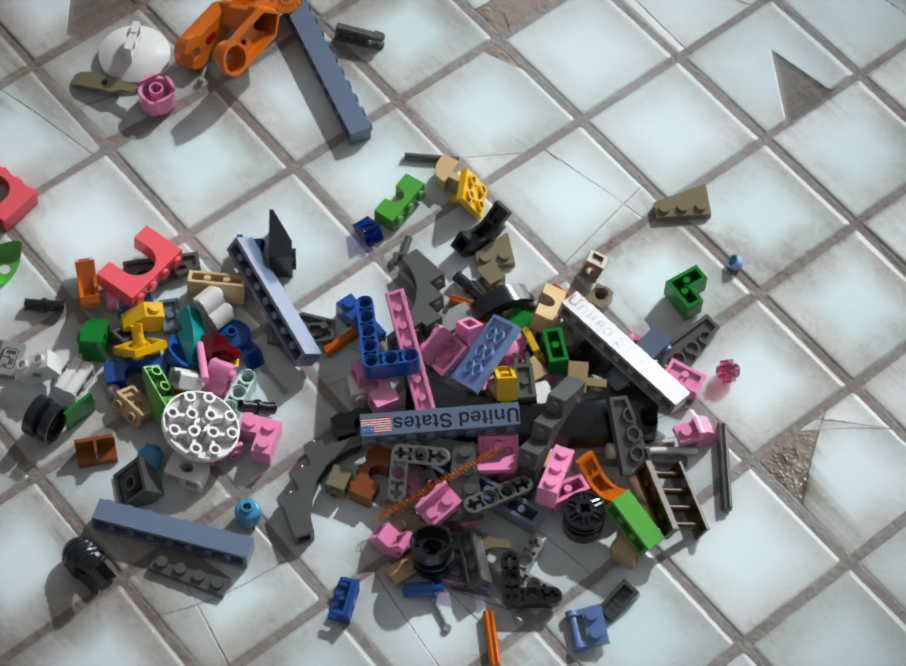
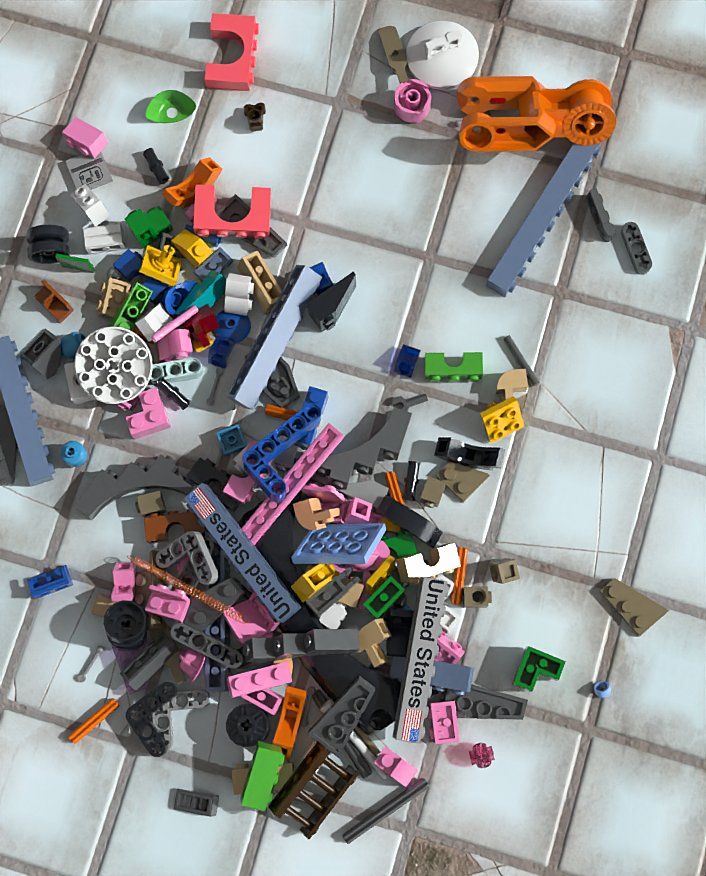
camera: 65 degrees right, 20 degrees up
(66, 208) = (255, 116): none -> dark brown plate
(332, 391) = (231, 440): none -> dark azure piece
(416, 39) = (633, 255): none -> dark grey beam
(423, 588) = (98, 635): blue cylinder -> none
(446, 366) = (311, 516): none -> light nougat brick
(503, 522) = (191, 662): none -> bright pink piece
(594, 626) = (157, 798): medium blue plate -> none

